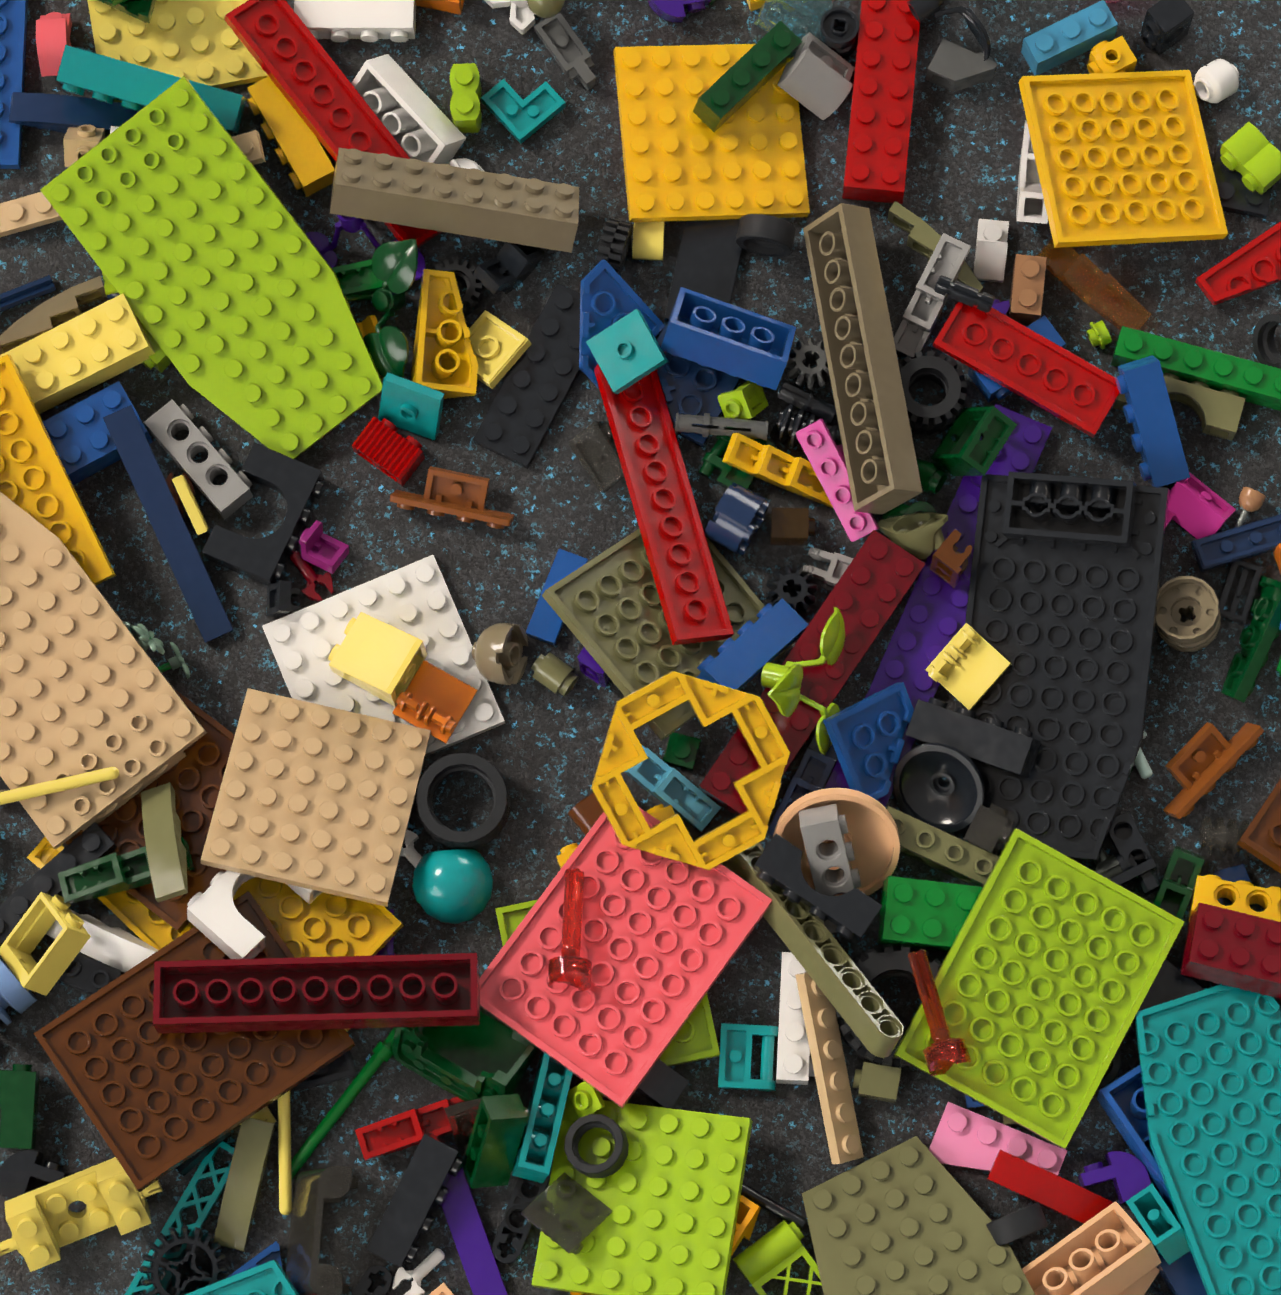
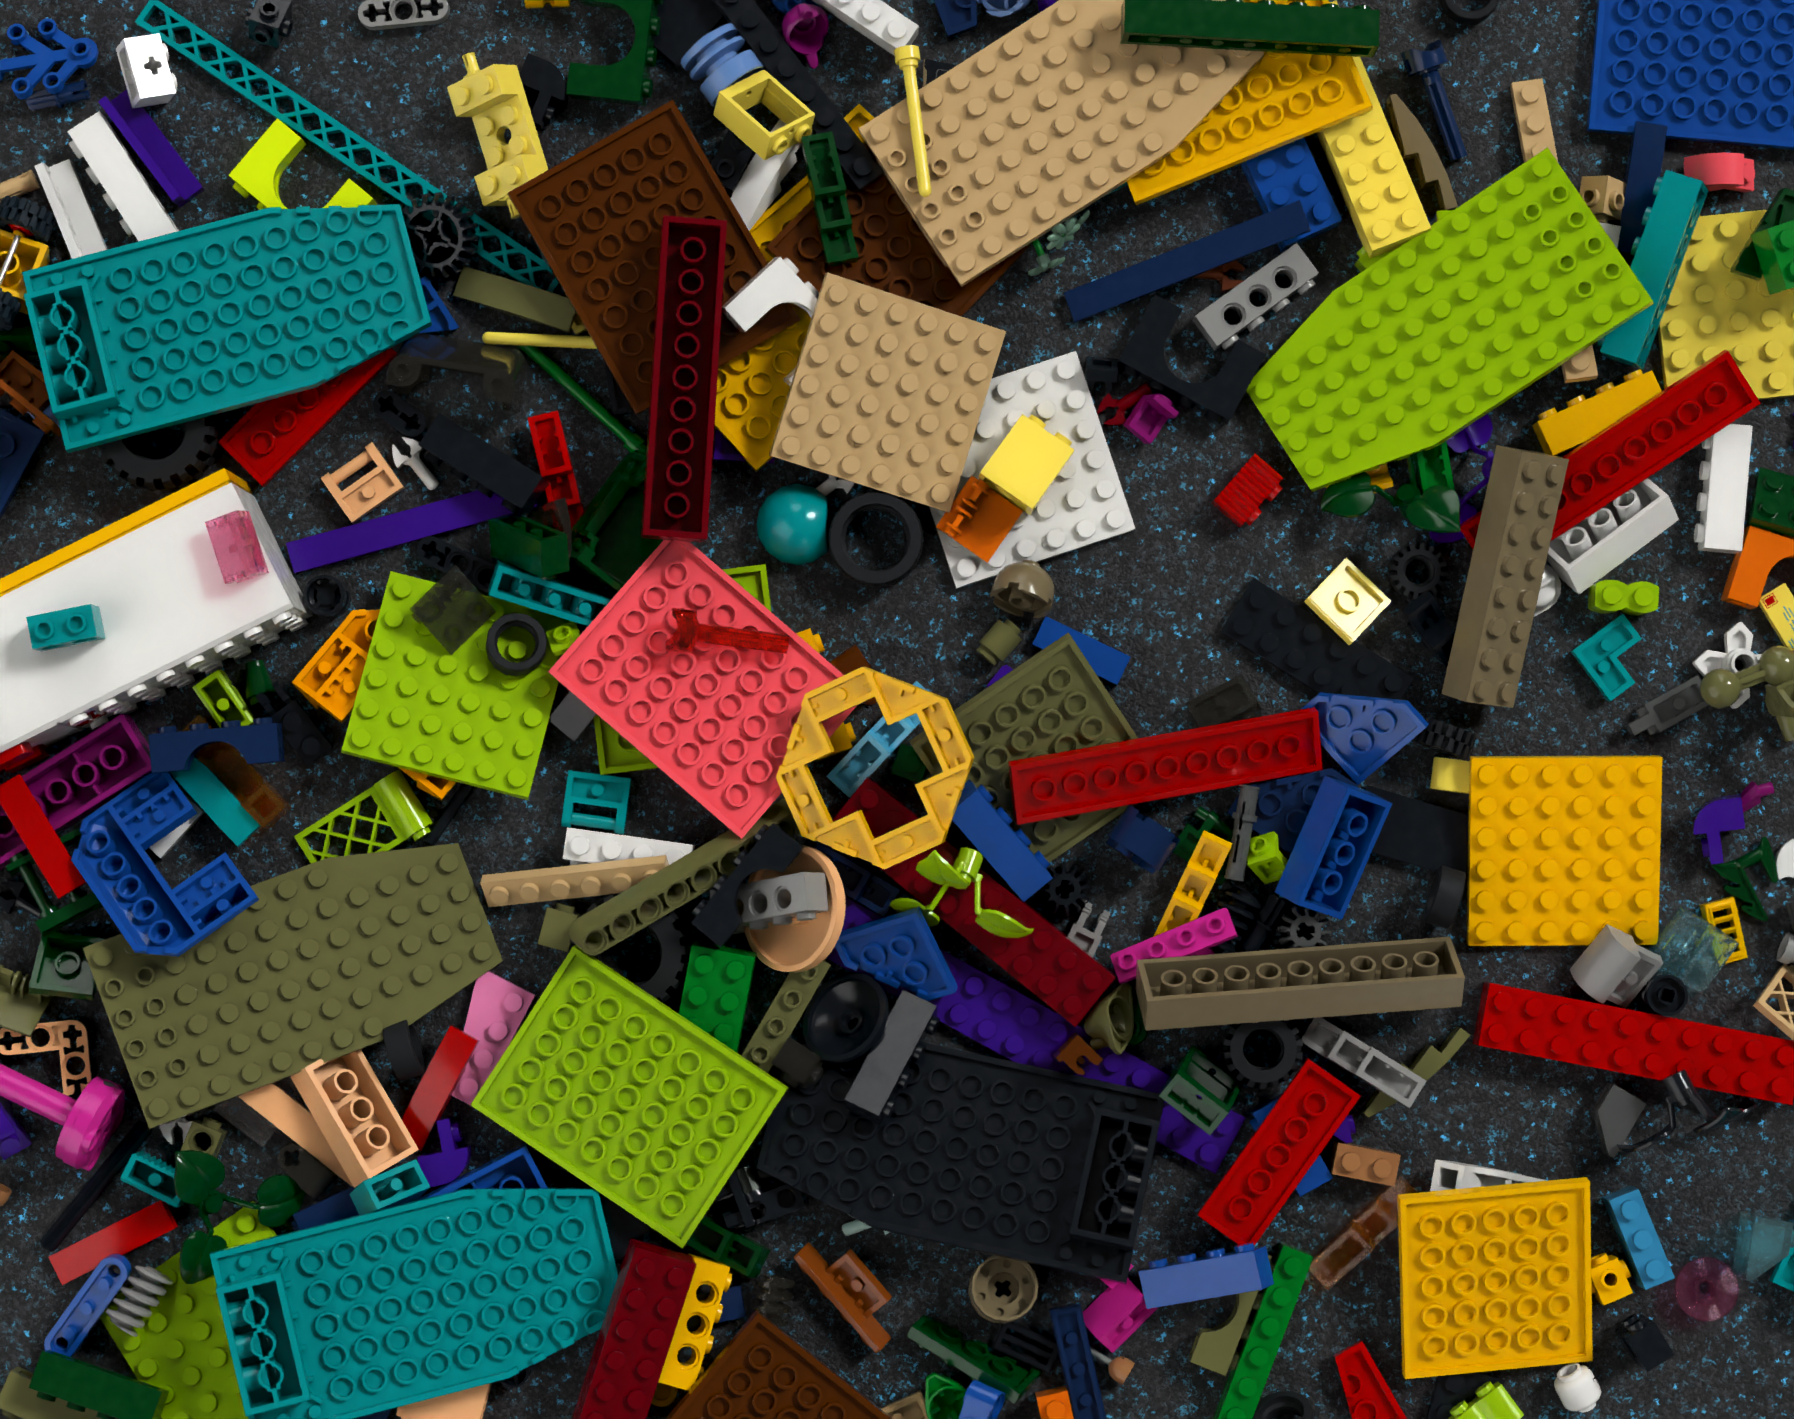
camera: 90 degrees right, 10 degrees up
(163, 842) = (851, 237): olive slope -> none
(190, 504) = (1206, 285): light yellow tile -> none
(411, 406) = (1290, 516): teal plate -> none
(442, 340) = (1351, 553): yellow wedge -> none
(455, 495) = (1193, 556): dark orange bracket -> none
(627, 351) = (1326, 741): teal plate -> none
(747, 76) = (1618, 893): dark green brick -> none
(791, 526) = (1132, 895): dark brown brick -> none
(931, 476) = (1174, 1042): dark green cone -> none
(944, 1050) = (569, 994): clear red piece -> none
(964, 293) = (1356, 1095): black axle -> none
(967, 666) = (966, 1059): light yellow hinge -> none
(991, 250) = (1412, 1130): white slope -> none
(1098, 334) = (1310, 1232): lime plate -> none

